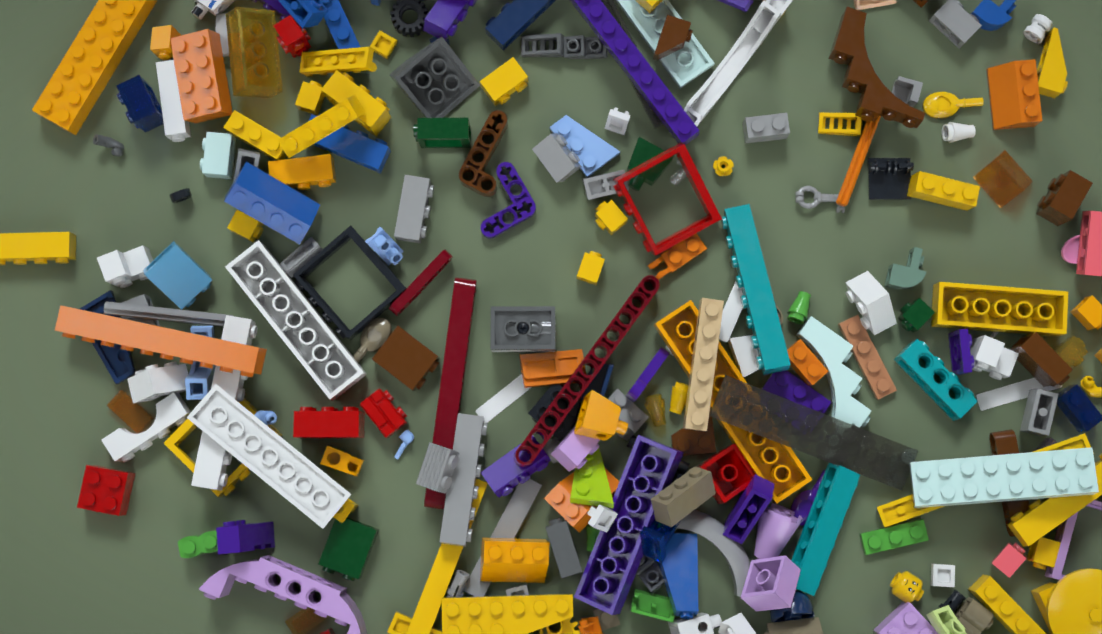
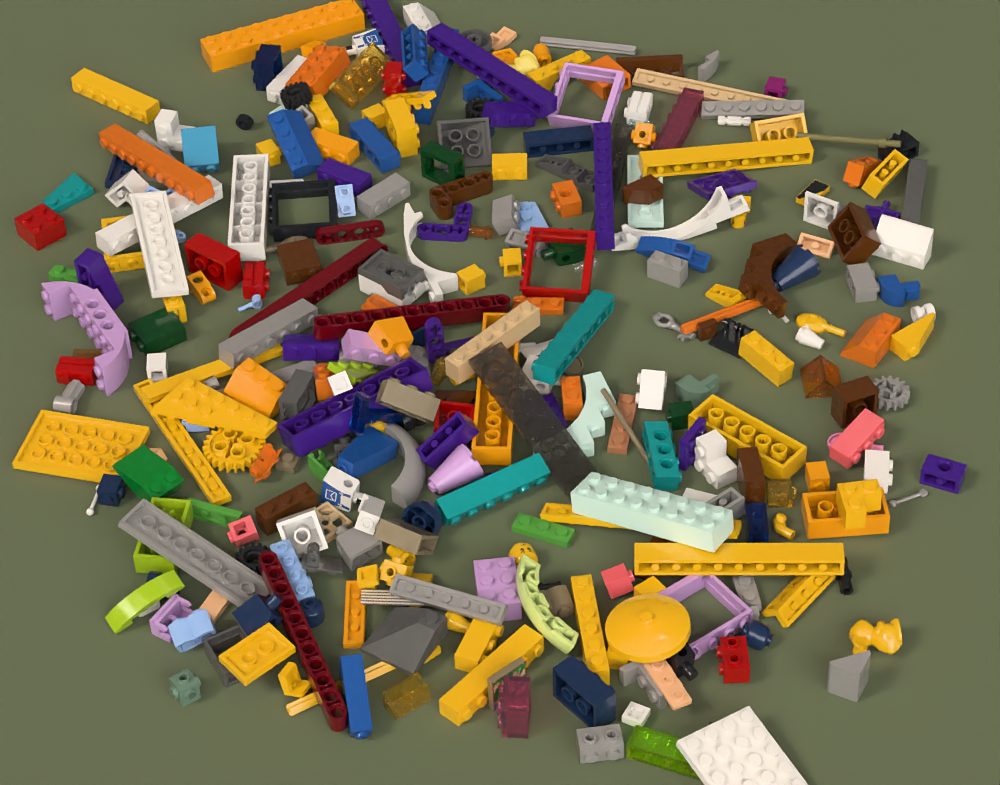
camera: 35 degrees right, 40 degrees down
(87, 421) = (68, 193): none -> teal wing
(117, 147) = (230, 84): dark grey arm -> none
(130, 413) = (97, 204): clear orange tile -> none
(170, 412) = (78, 213): white arch -> none
(228, 137) = (296, 95): none -> black tyre
(321, 126) = (382, 110): yellow arch -> none
(352, 210) = (345, 175): none -> dark purple brick
(383, 44) = (449, 115): yellow tile -> none
(391, 595) = (157, 366): none -> white brick
(438, 468) = (258, 308): light grey brick -> none
(546, 193) = (484, 232): none -> clear orange pin
(556, 295) = (436, 281): none -> white slope
(591, 80) = (566, 199): none -> orange brick
(617, 121) = (566, 218): white tile -> none
(723, 171) = (618, 277): yellow plate -> none
(755, 102) = (696, 259): none -> blue slope
(770, 583) = (421, 485): lavender brick -> none
(799, 309) = (605, 368): bright green cone -> none
(861, 185) = (706, 329): none -> reddish brown plate
(881, 366) = (625, 424): none -> dark tan axle
(887, 50) = (796, 268): none -> dark blue cone
(907, 90) = (795, 300): light grey panel -> none
(943, 575) = (558, 568): white plate -> none
(1086, 156) = (892, 392): none -> light grey gear

